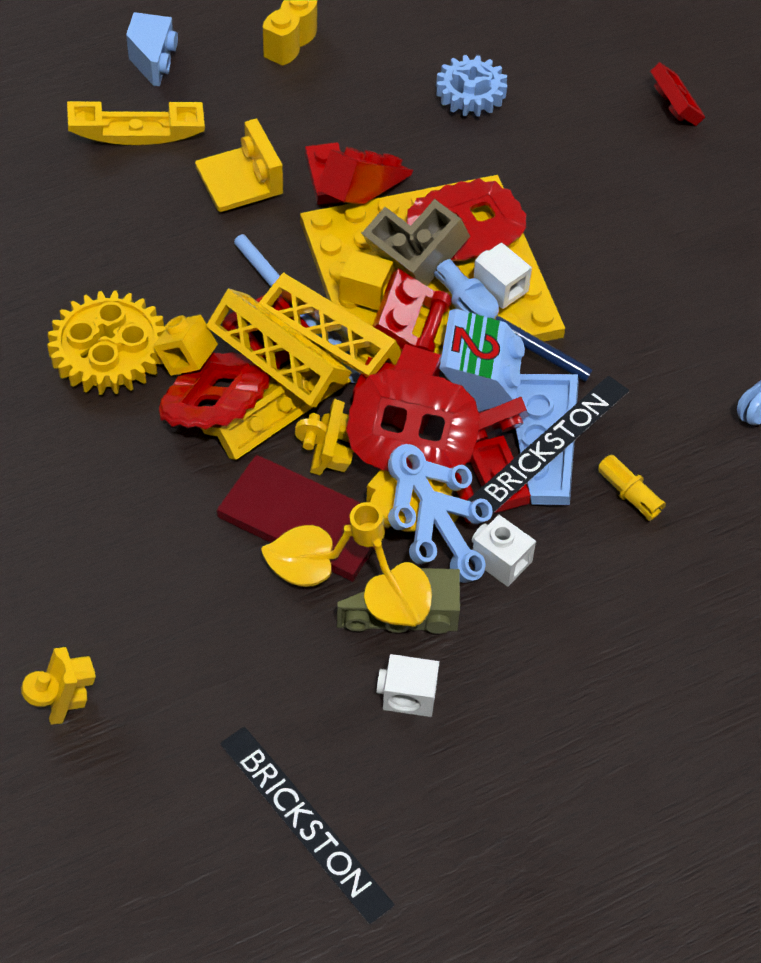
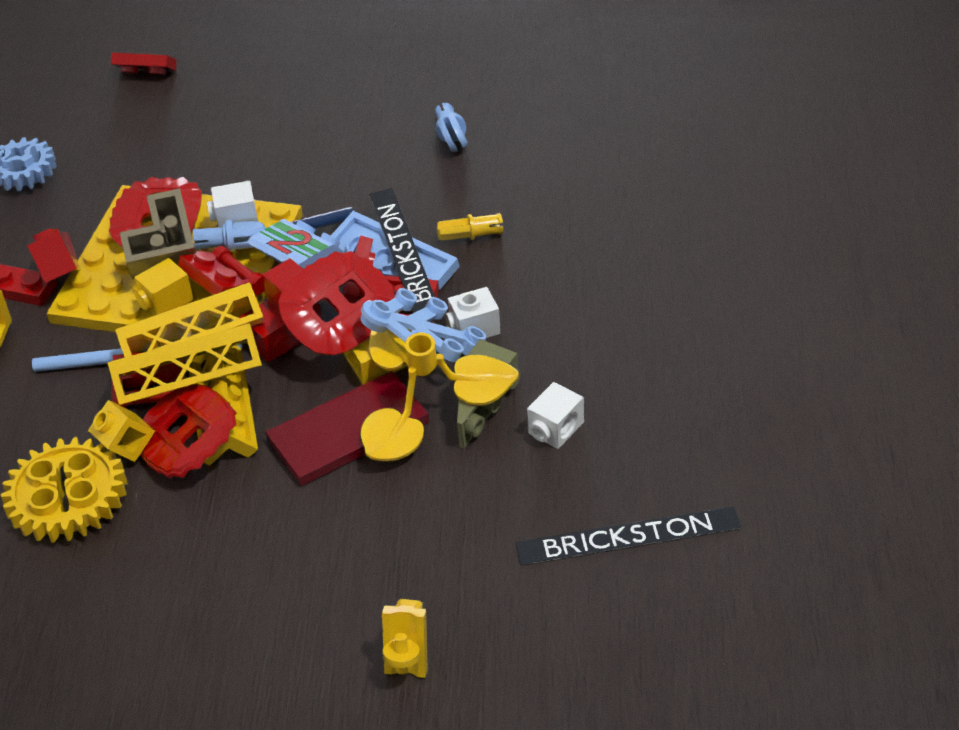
camera: 55 degrees left, 10 degrees down
(325, 435) = (286, 378): yellow hips -> none

